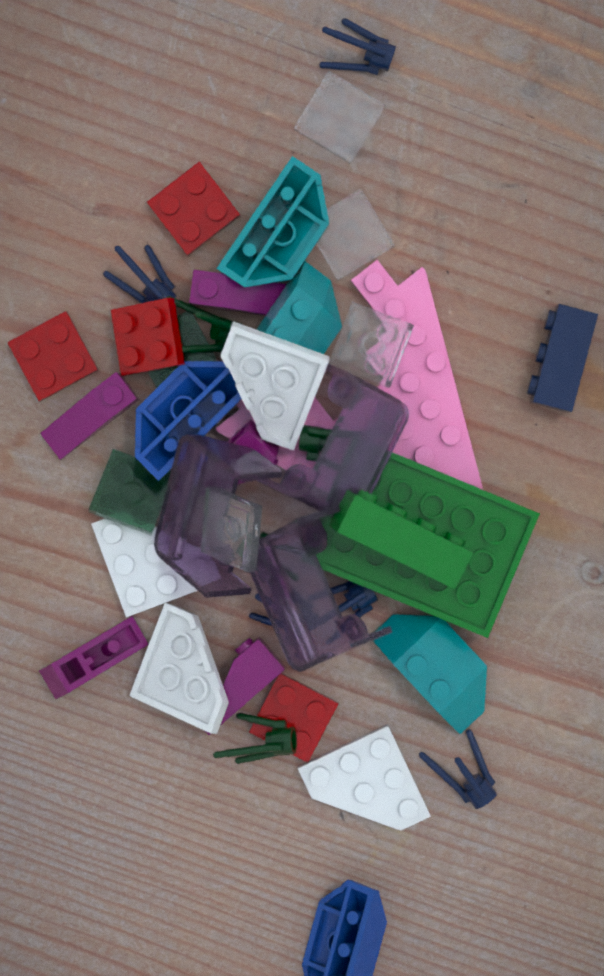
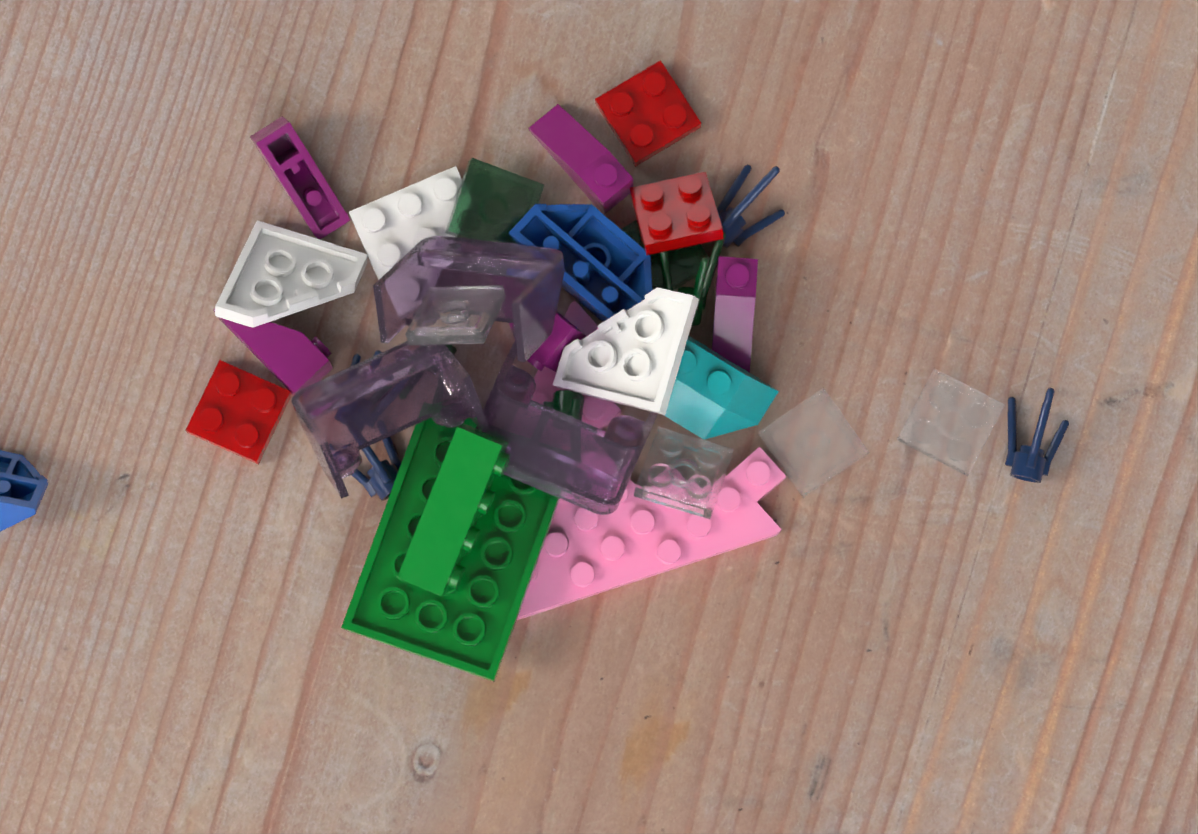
camera: 90 degrees right, 10 degrees down
(193, 208) = (830, 261): red plate -> none
(278, 742) = (208, 389): dark green plant -> none
(280, 229) = (811, 355): teal wedge -> none
(367, 780) = (166, 503): white plate -> none
(437, 666) = (304, 574): teal wedge -> none
(477, 788) = (160, 631): dark blue plant -> none
(562, 357) = (682, 701): dark blue brick -> none

